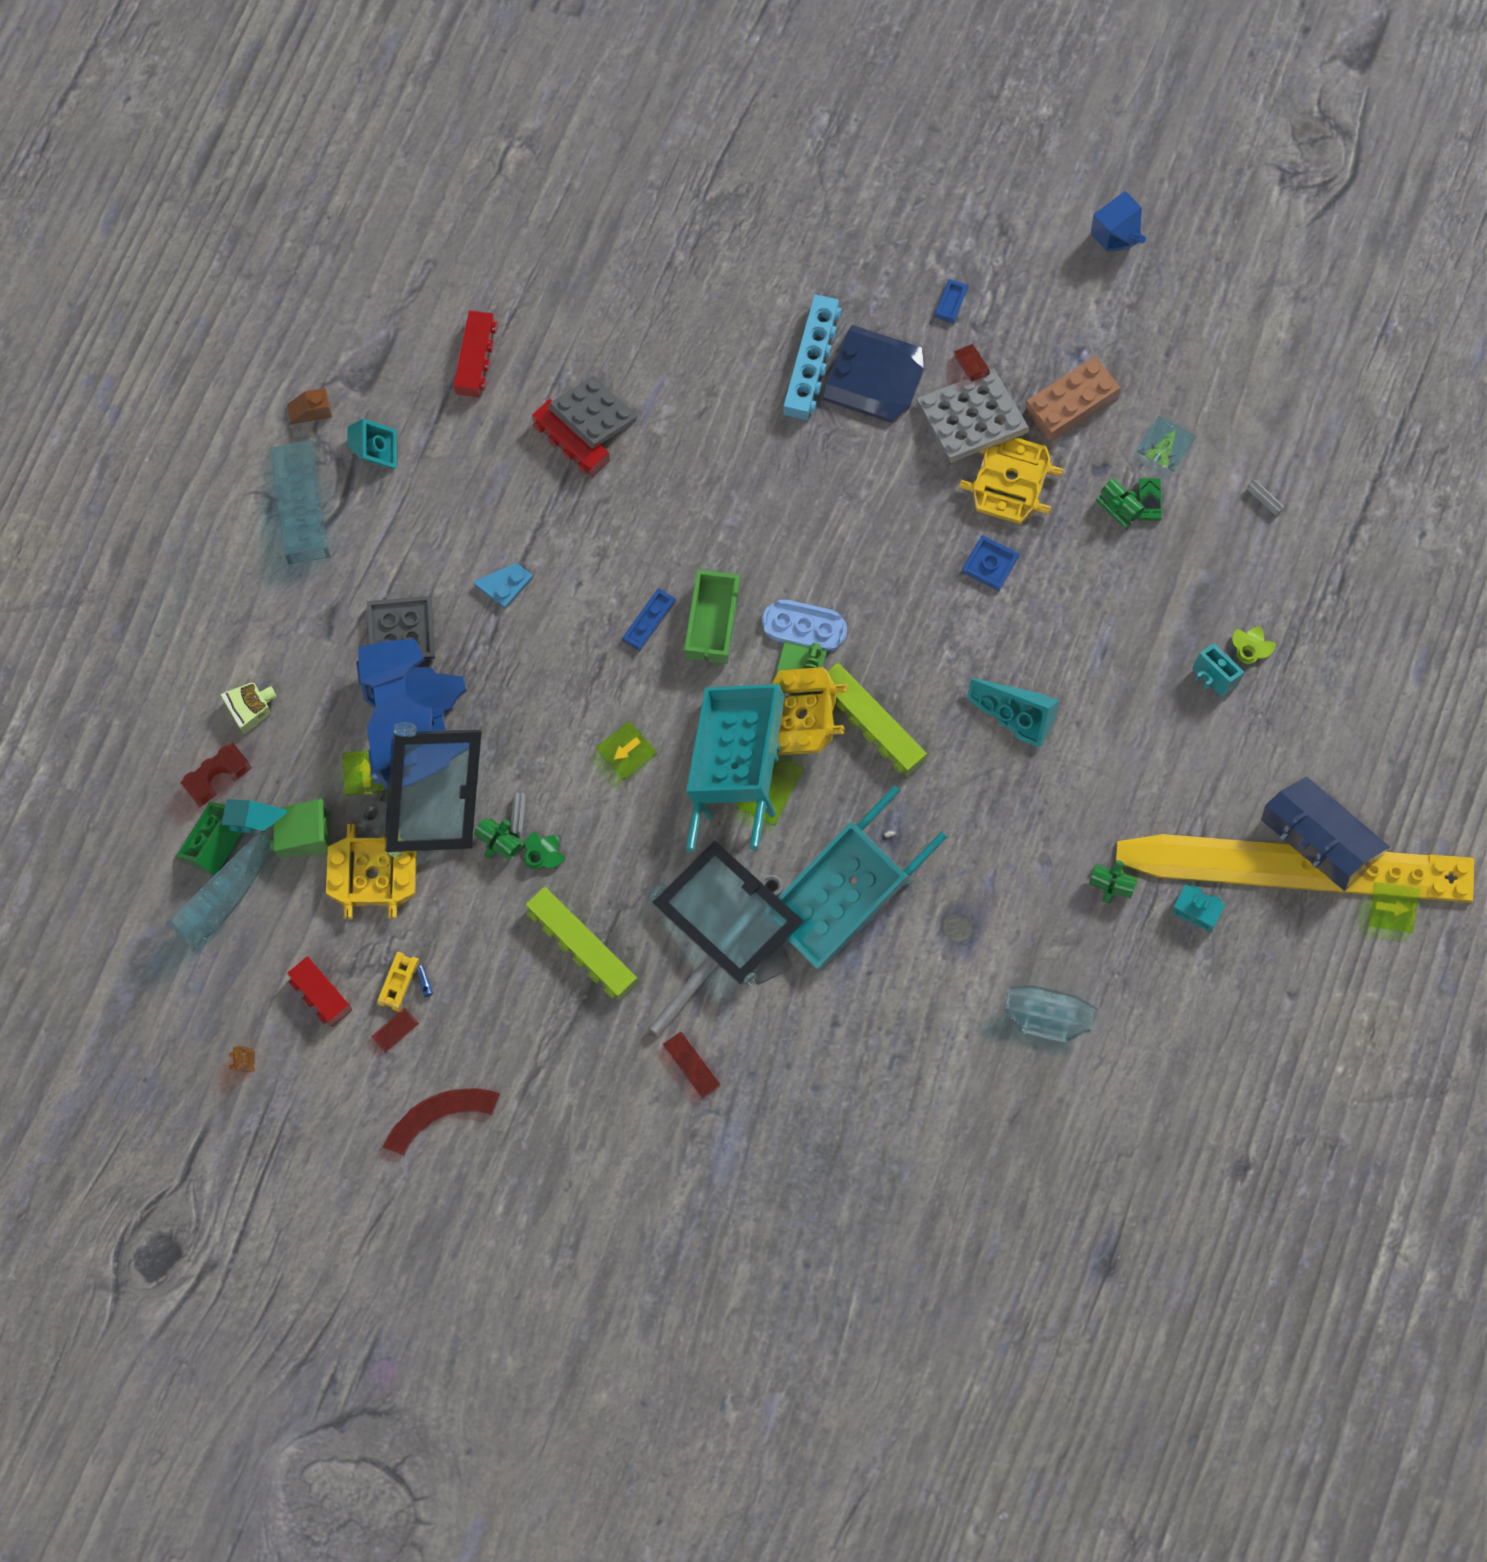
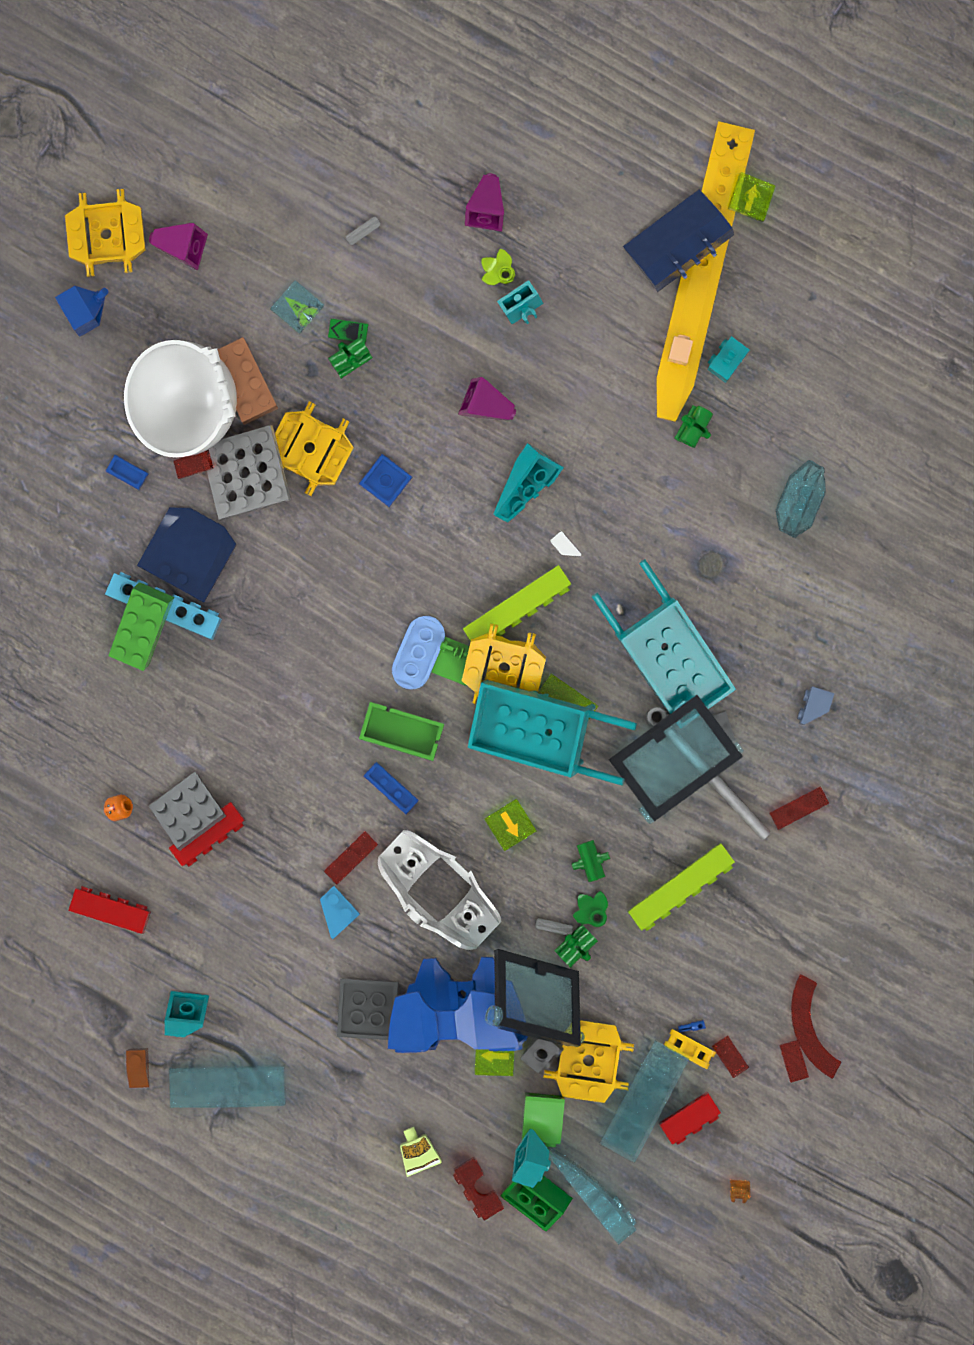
camera: 85 degrees left, 15 degrees up
(330, 936) = (643, 1102): none -> clear light blue slope
(398, 1101) = (794, 1061): none -> clear red tile
(551, 634) = (454, 926): none -> white piece
(566, 589) = (351, 857): none -> clear red tile
(586, 344) = (118, 807): none -> orange head
(597, 840) = (591, 861): none -> green pin
(785, 332) = (141, 626): none -> bright green brick
(814, 1065) = (816, 705): none -> sand blue slope
(951, 763) = (564, 545): none -> white sticker
(1038, 326) = (180, 398): none -> white windscreen
(1096, 652) = (486, 402): none -> magenta slope
(1197, 849) = (680, 350): none -> light nougat brick
(1207, 261) = (102, 218): none -> yellow piece
(1211, 315) = (181, 242): none -> magenta slope
(1322, 618) = (486, 205): none -> magenta slope

